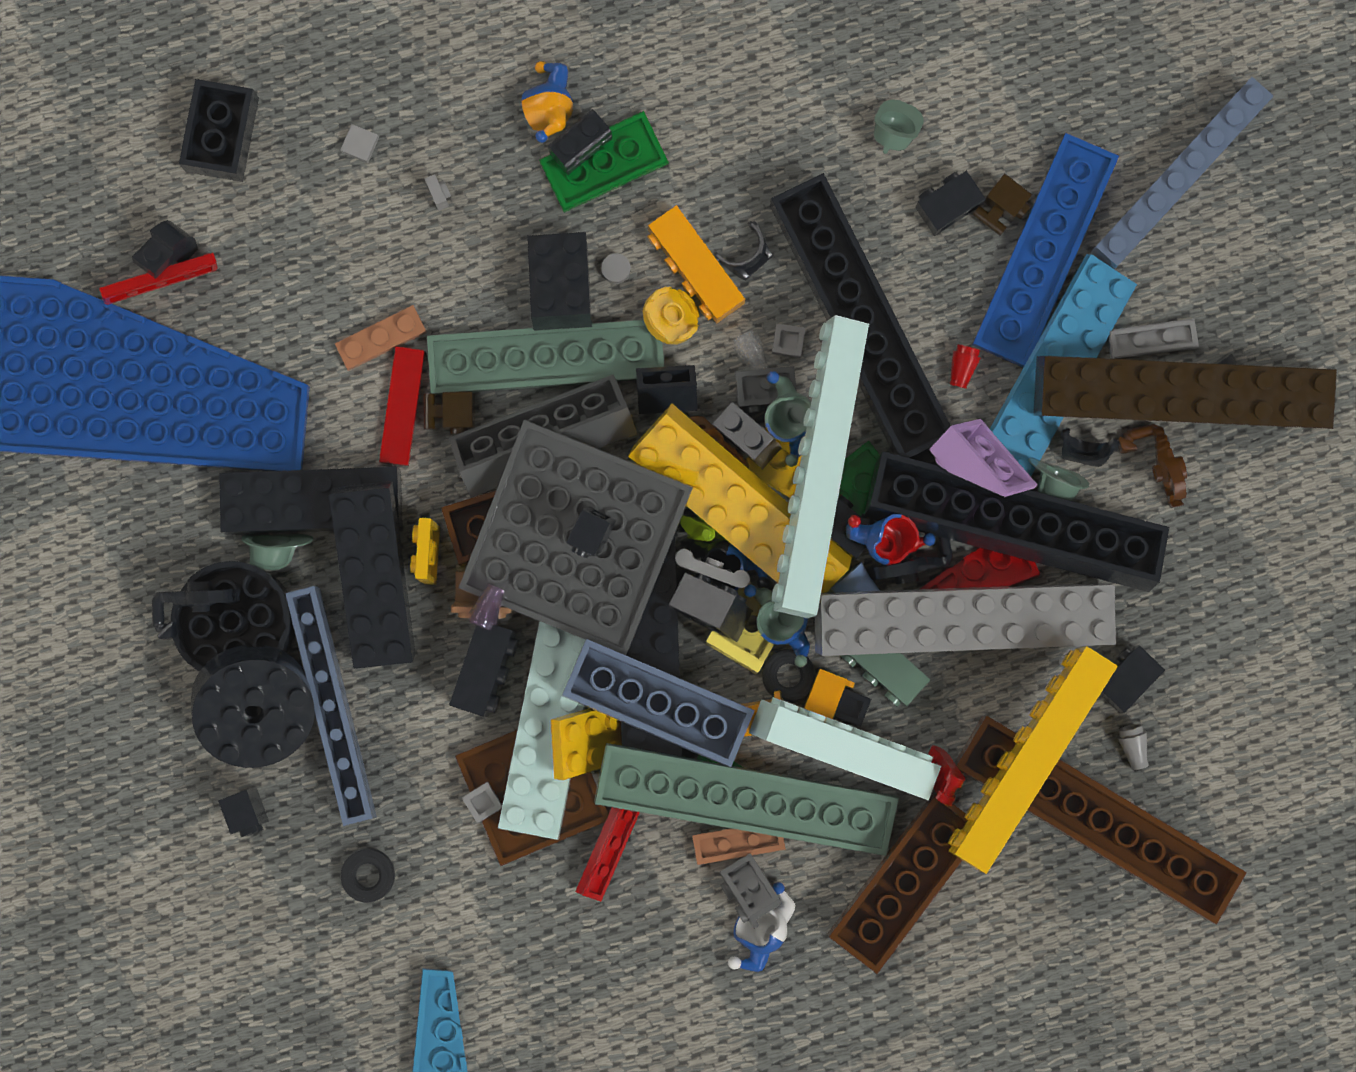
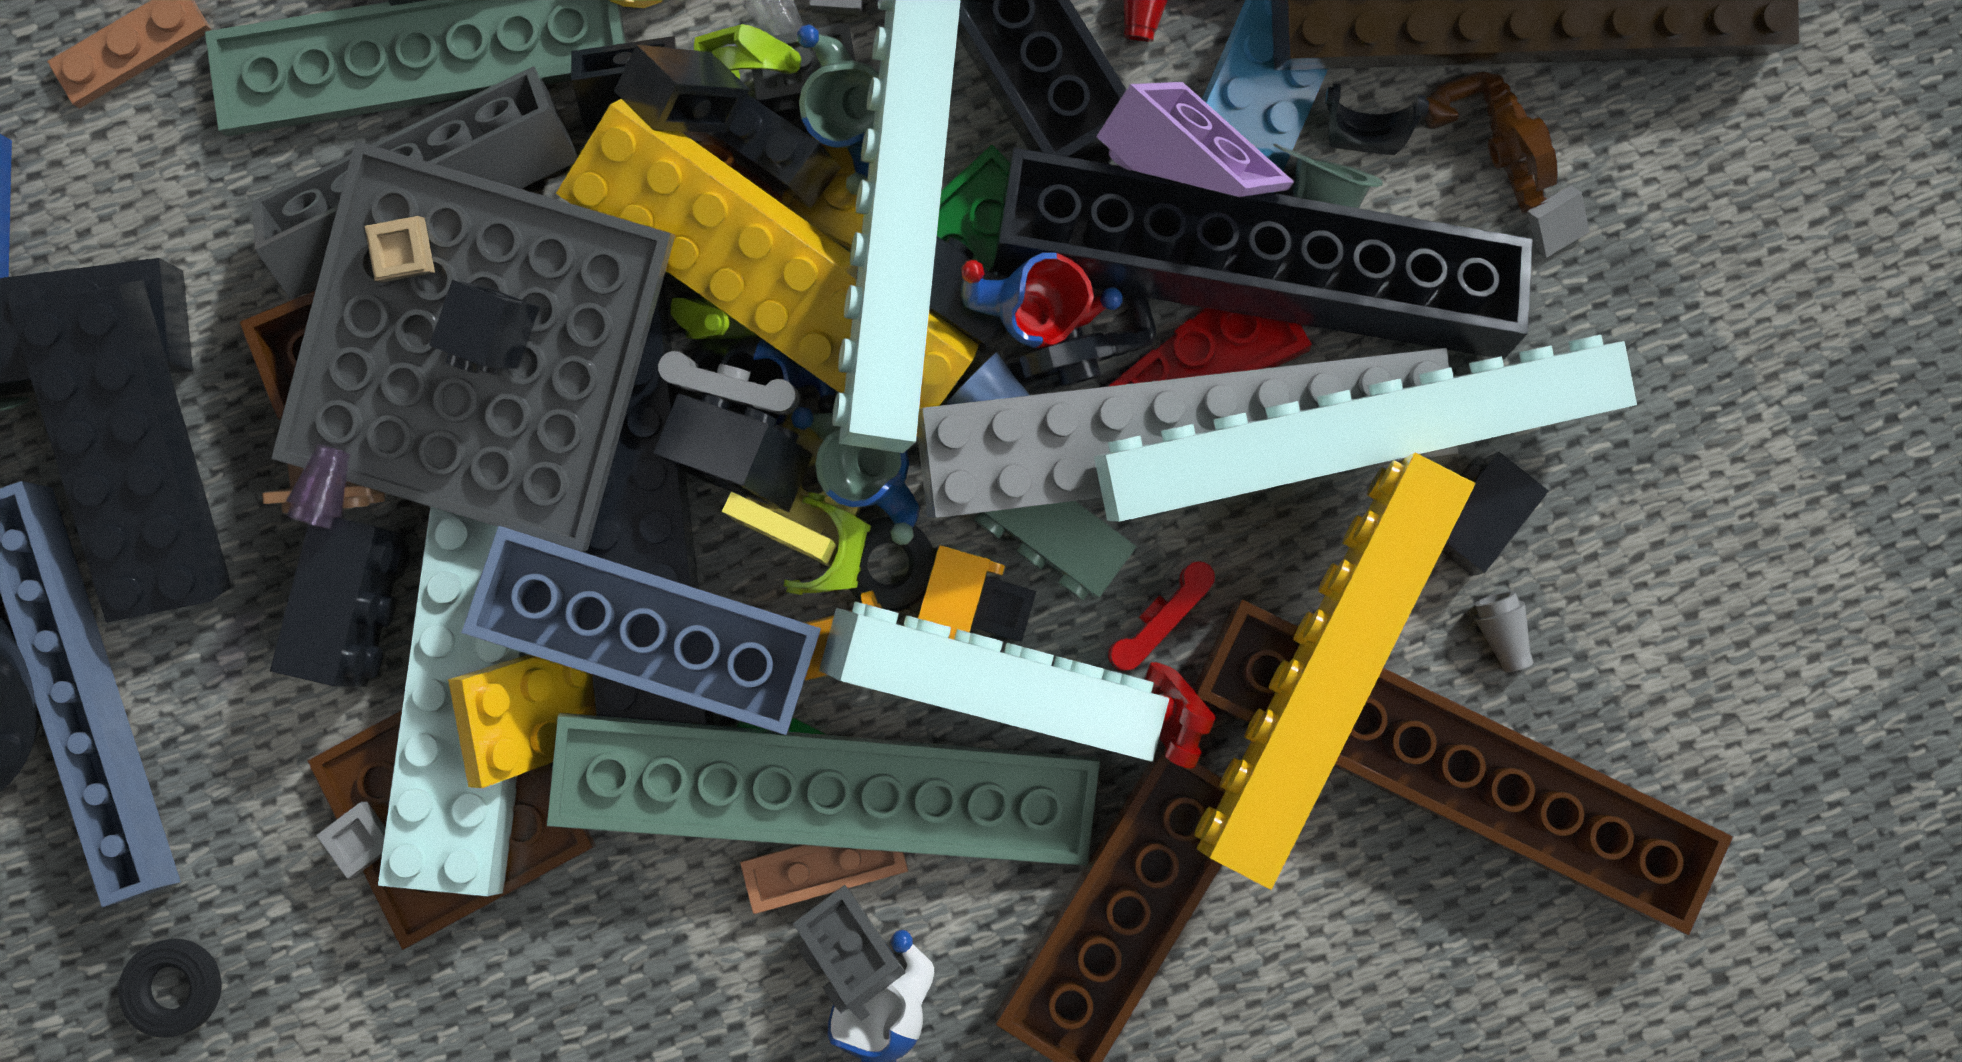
camera: 10 degrees left, 0 degrees up
(402, 406) = (175, 159): red tile -> none
(425, 562) = (215, 400): yellow plate -> none
(456, 411) = (265, 156): dark brown brick -> none
(543, 482) = (399, 249): none -> tan tile
(607, 853) = (590, 911): red tile -> none
(701, 403) = (681, 89): none -> black brick
(740, 382) = (753, 50): none -> lime helmet
(766, 677) = (846, 564): none -> lime helmet
(941, 720) = (1162, 617): none -> red plate
(1063, 628) = (1363, 430): none -> light aqua brick
(1188, 515) = (1558, 221): none -> light grey tile

